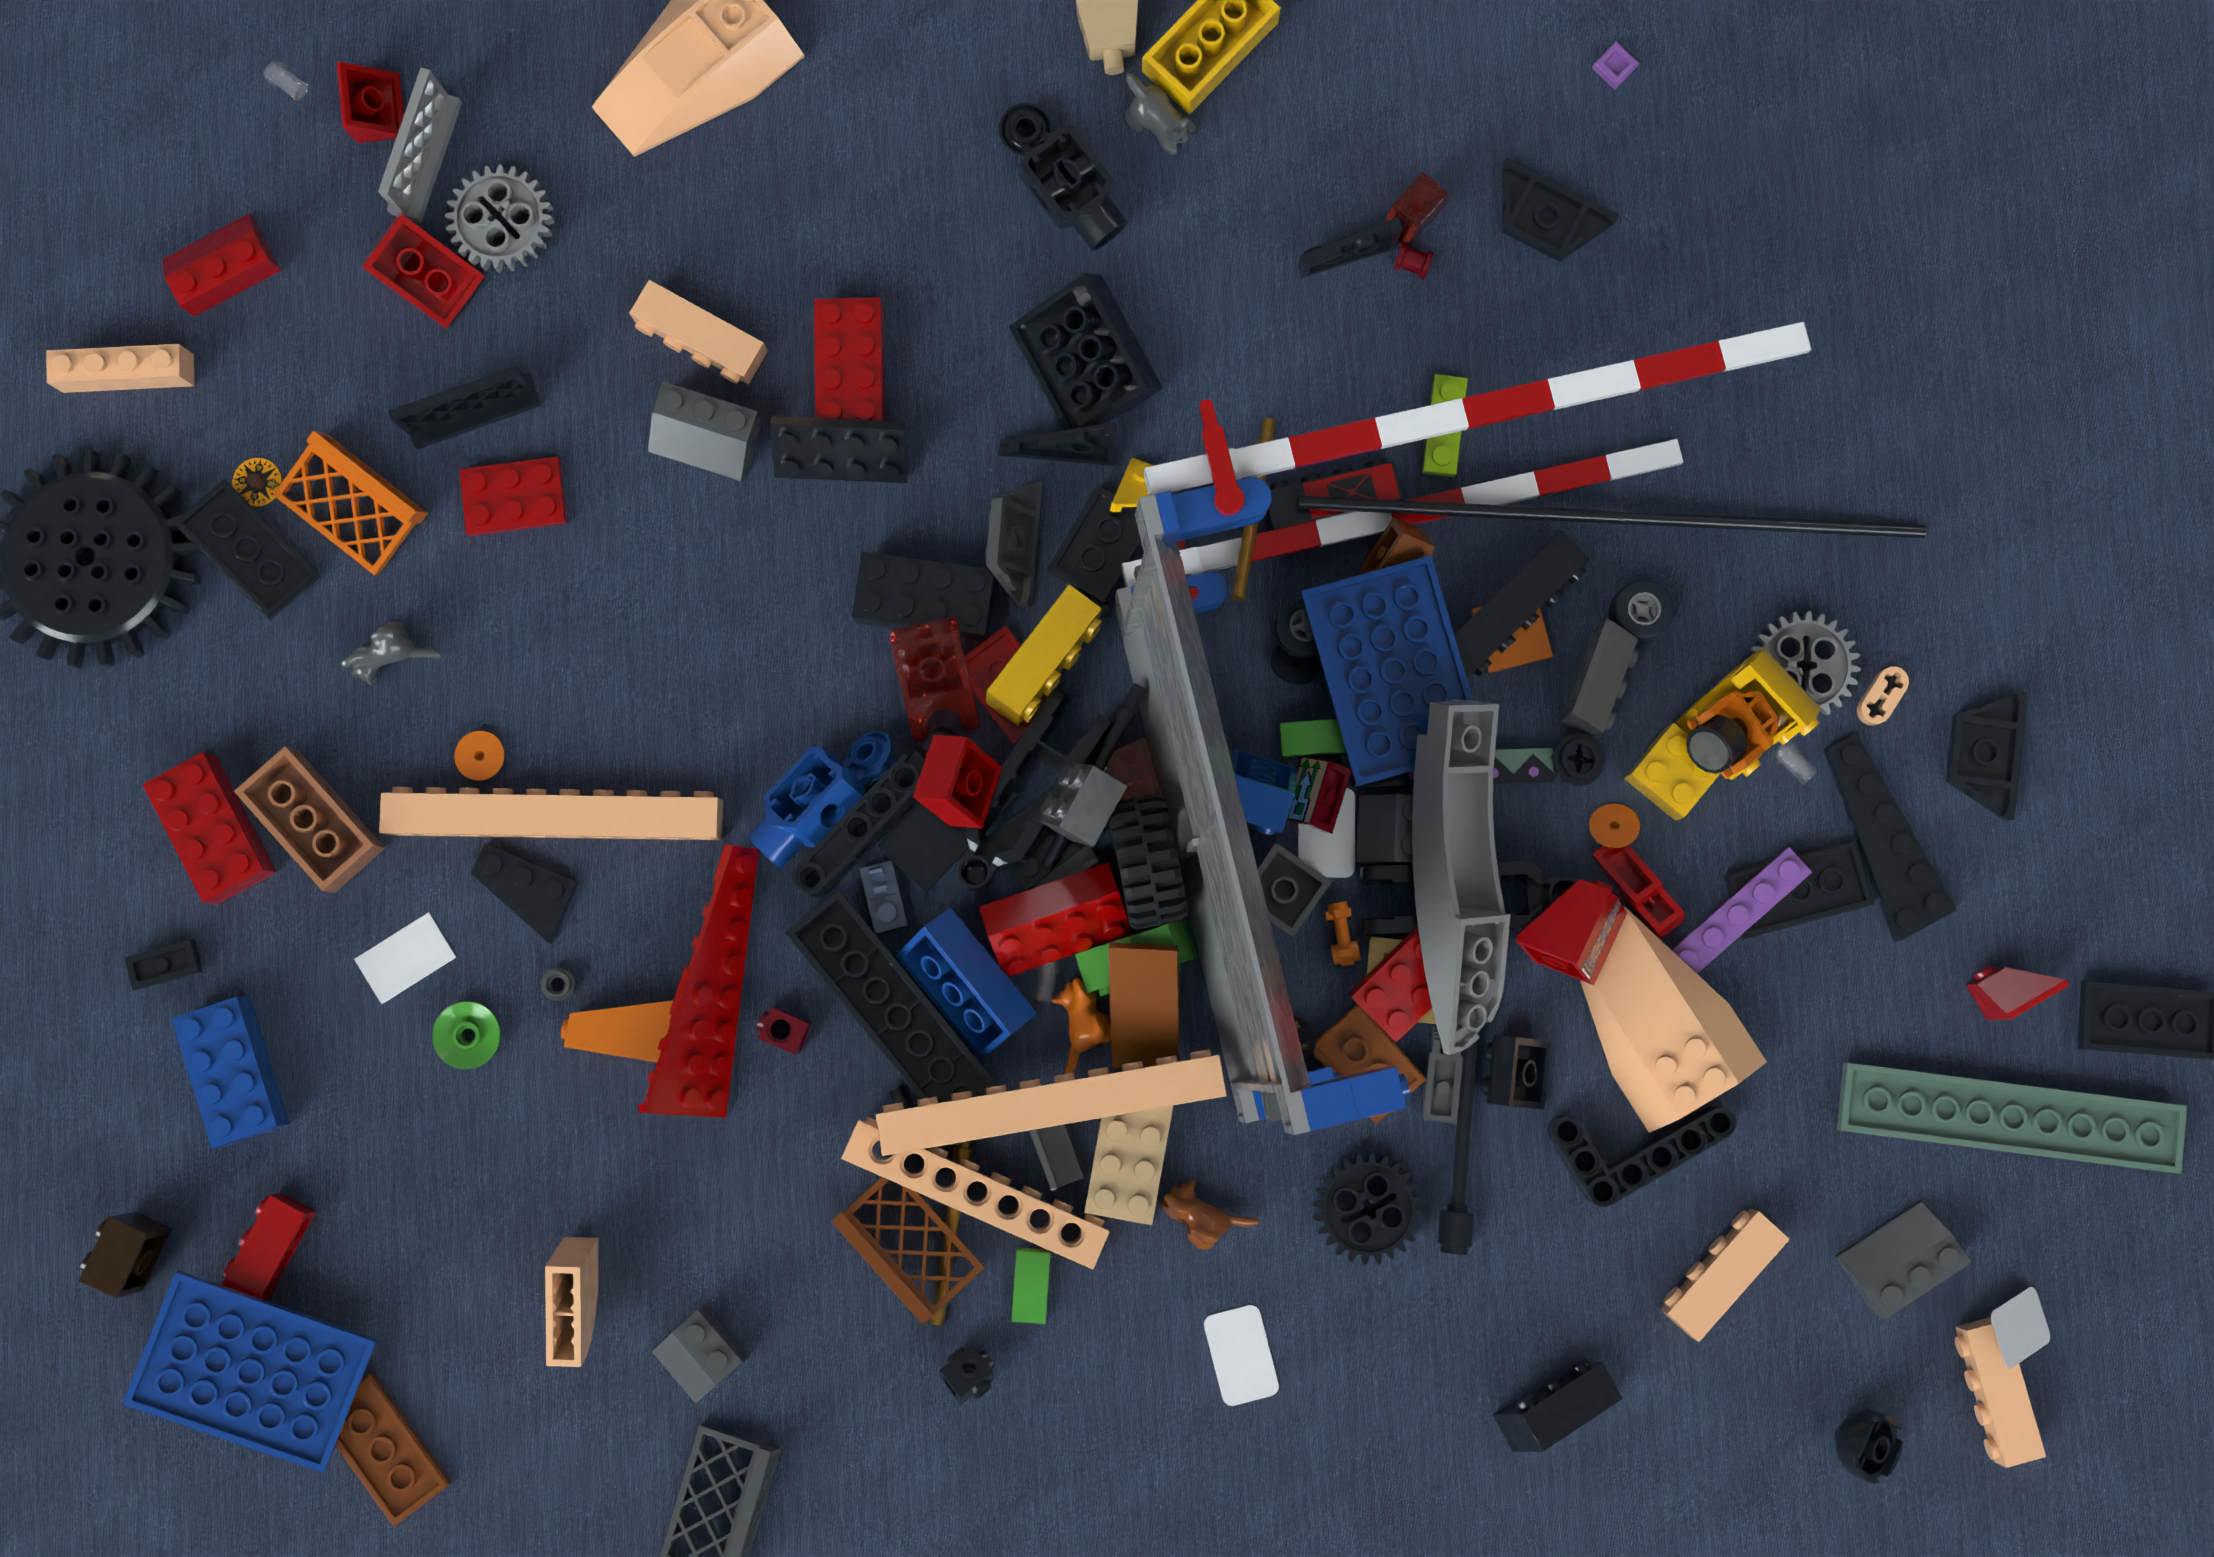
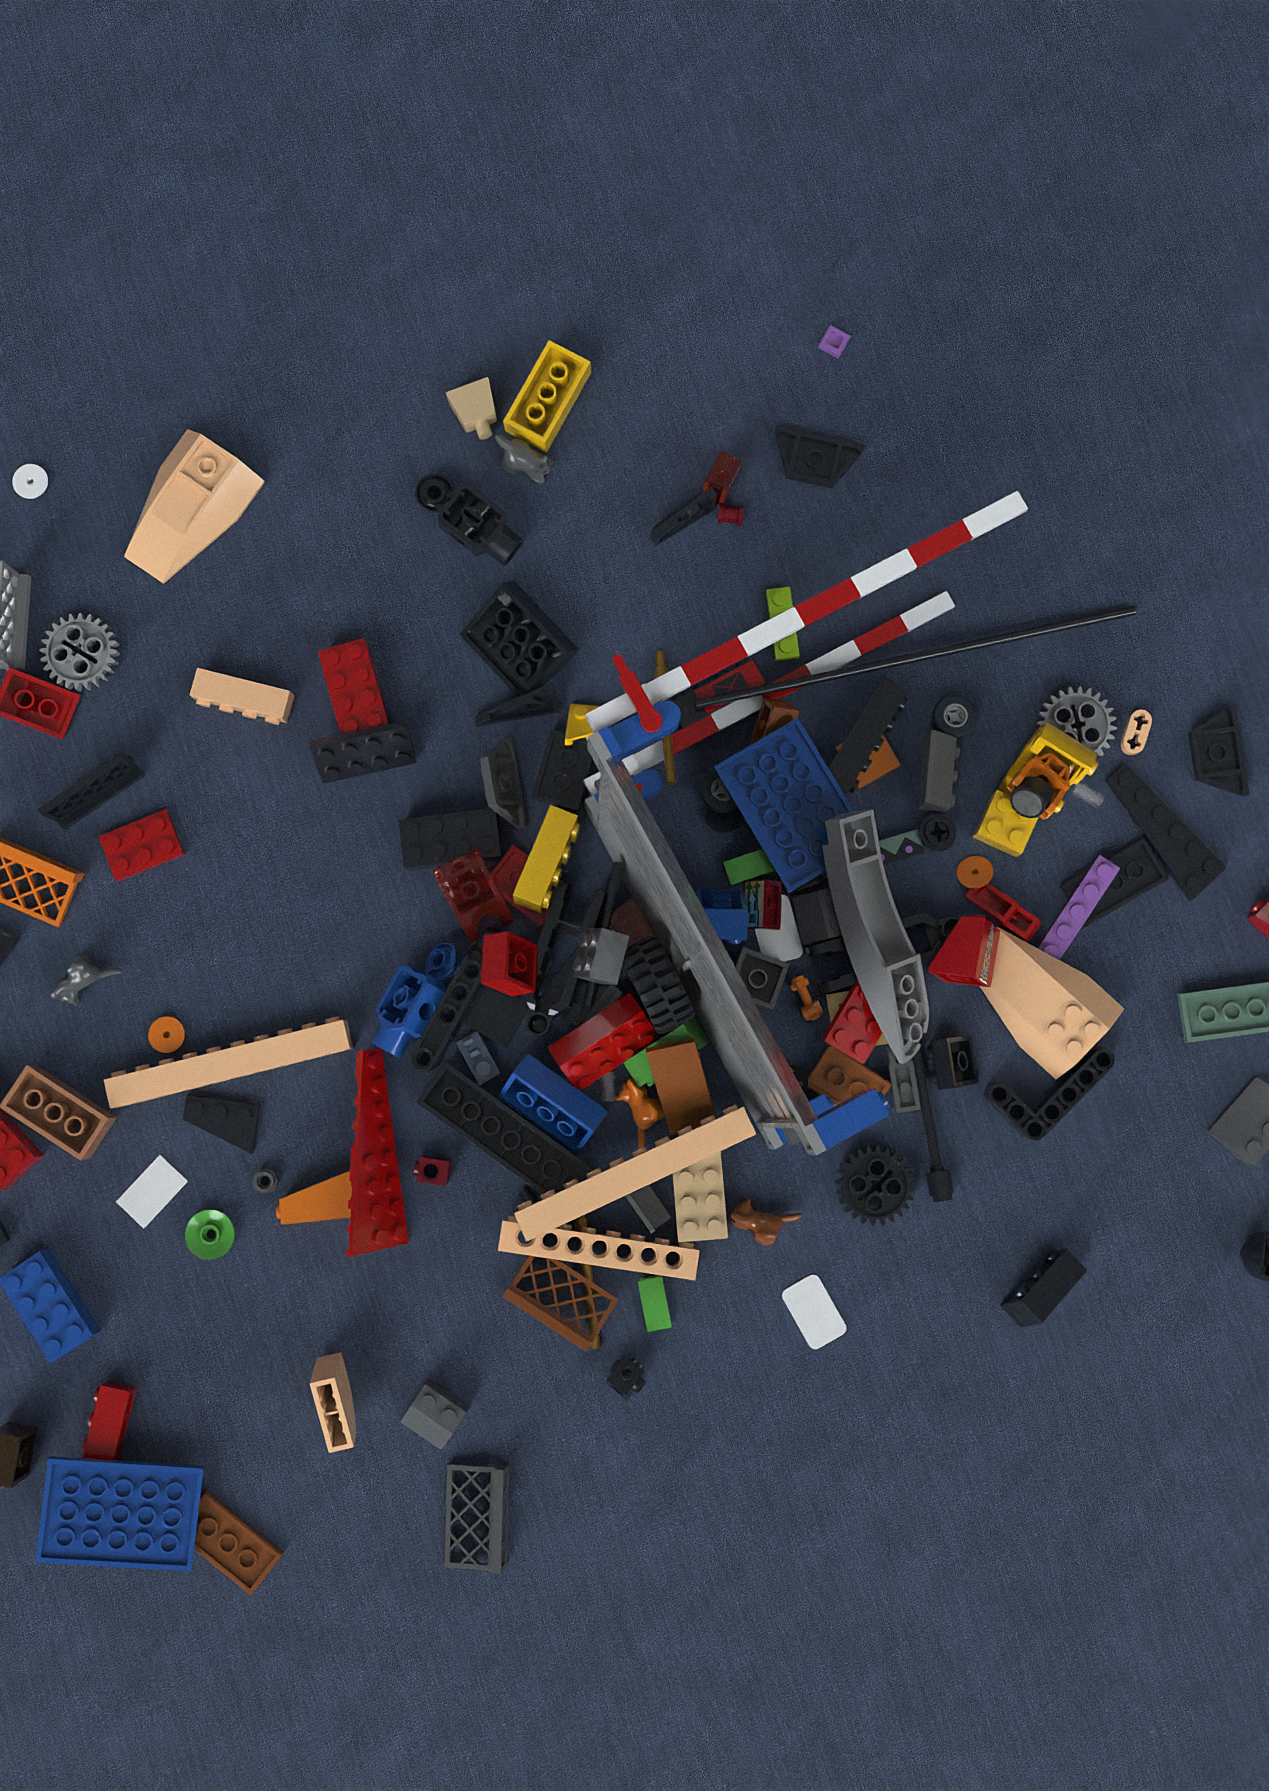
camera: 15 degrees left, 0 degrees up
(703, 431) = (264, 764): dark grey slope -> none
(1724, 1273) = (1133, 1164): light nougat brick -> none

